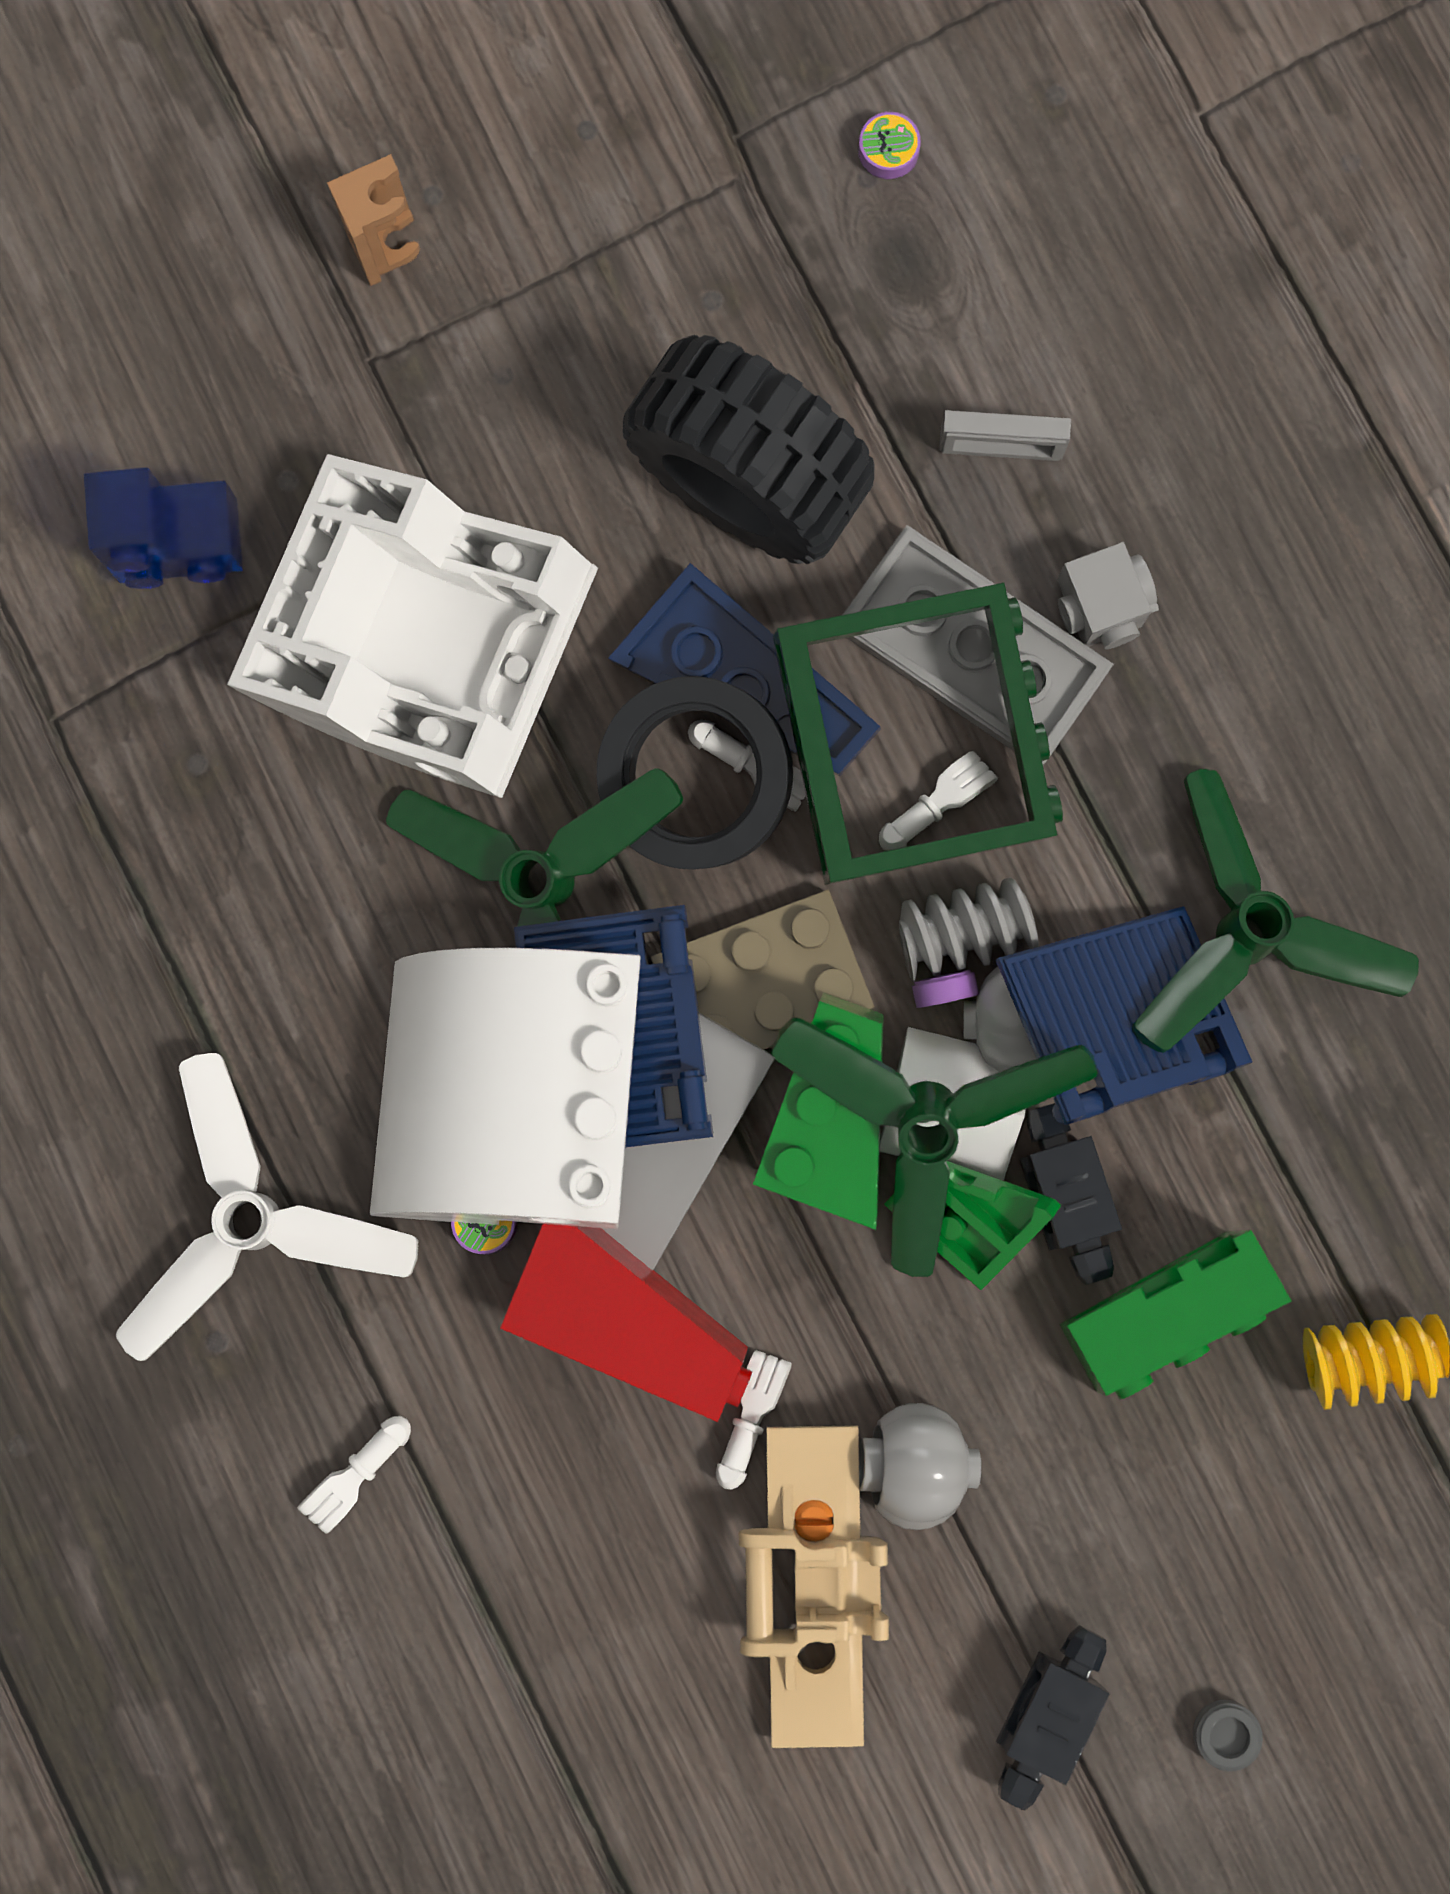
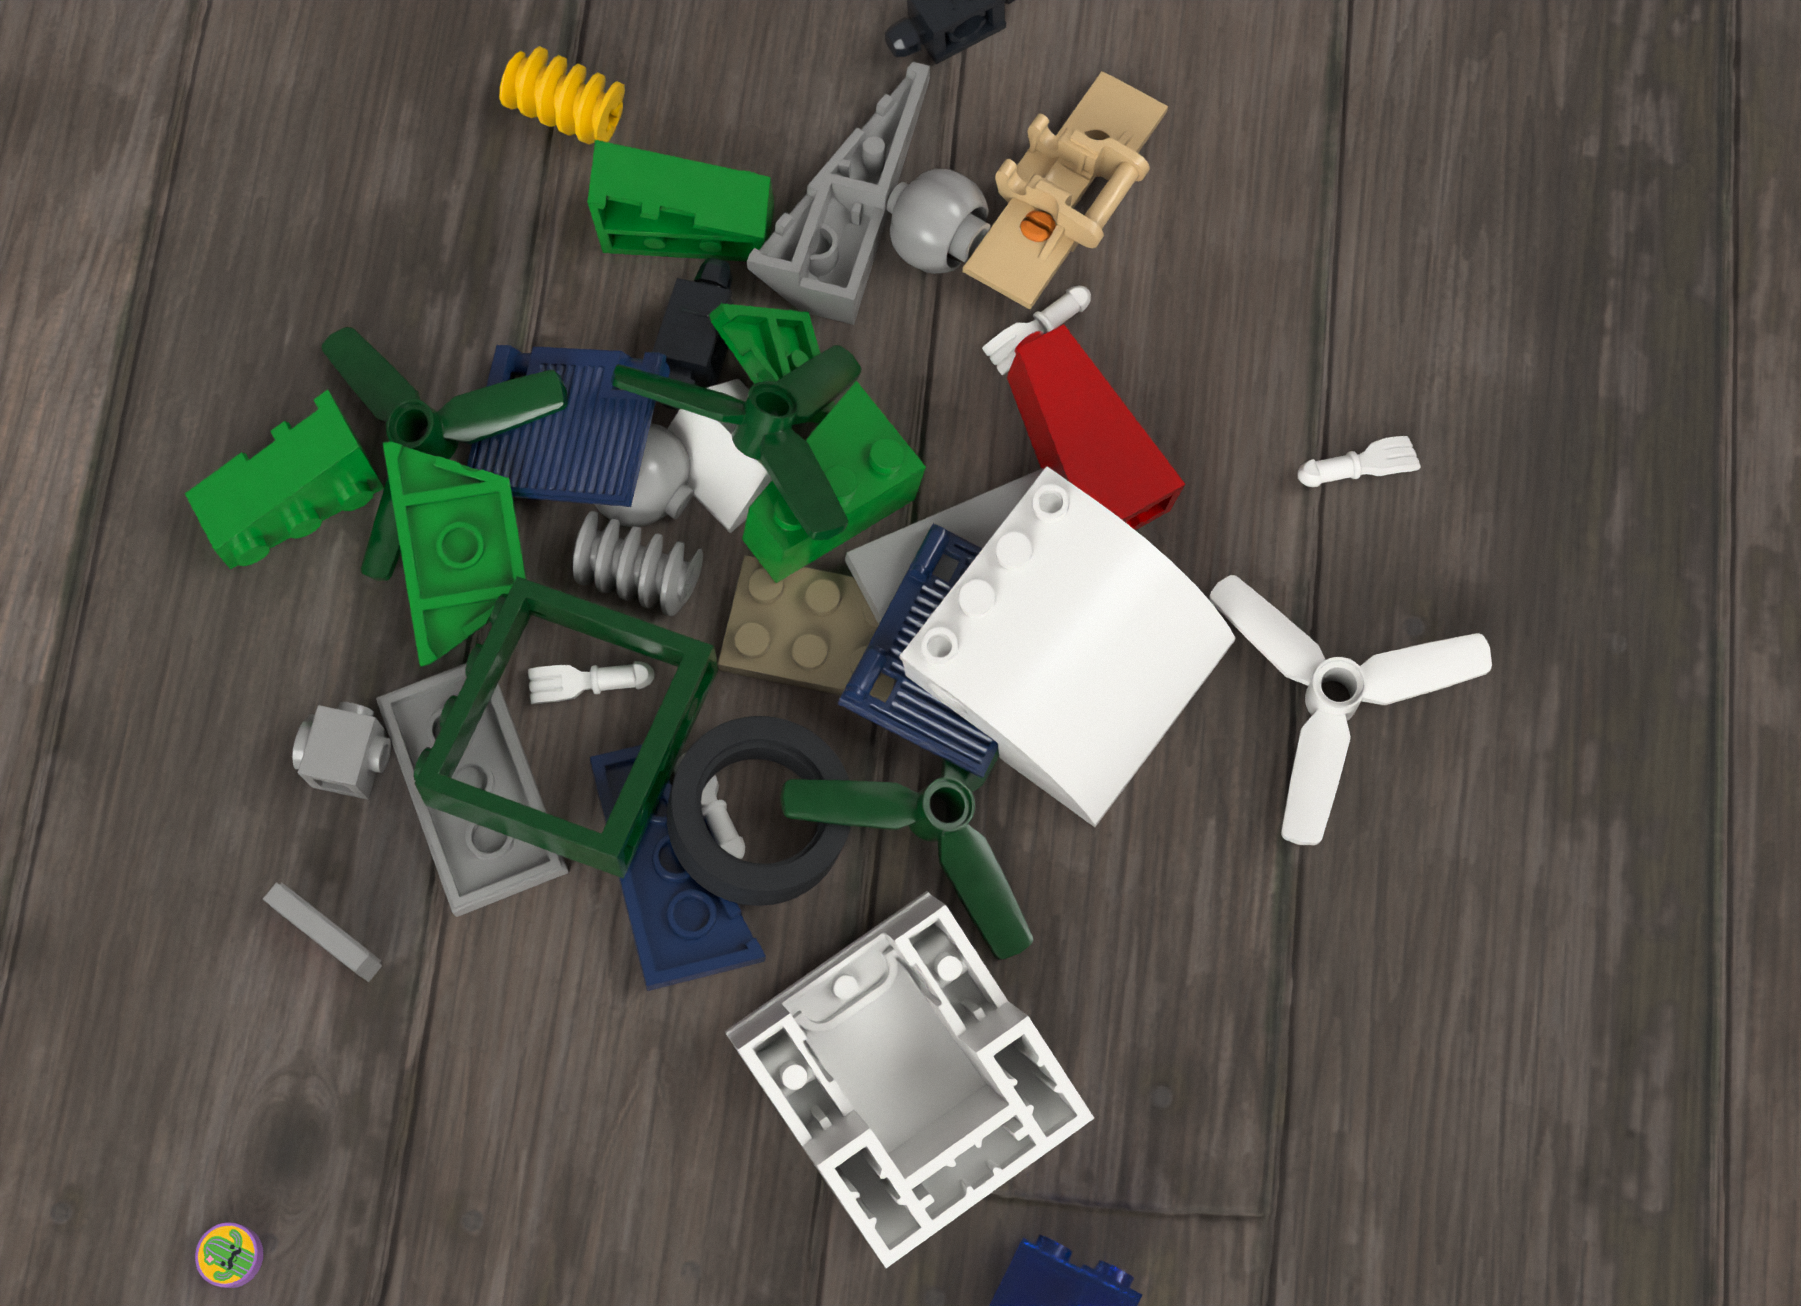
camera: 145 degrees left, 10 degrees down
(749, 448) = (536, 1019): black tyre -> none
(945, 988) = (684, 527): medium lavender tile -> none
(1010, 1380) = (831, 237): none -> light grey wedge
(1144, 840) = (454, 545): none -> green wing
(1338, 794) = (285, 487): none -> green wedge

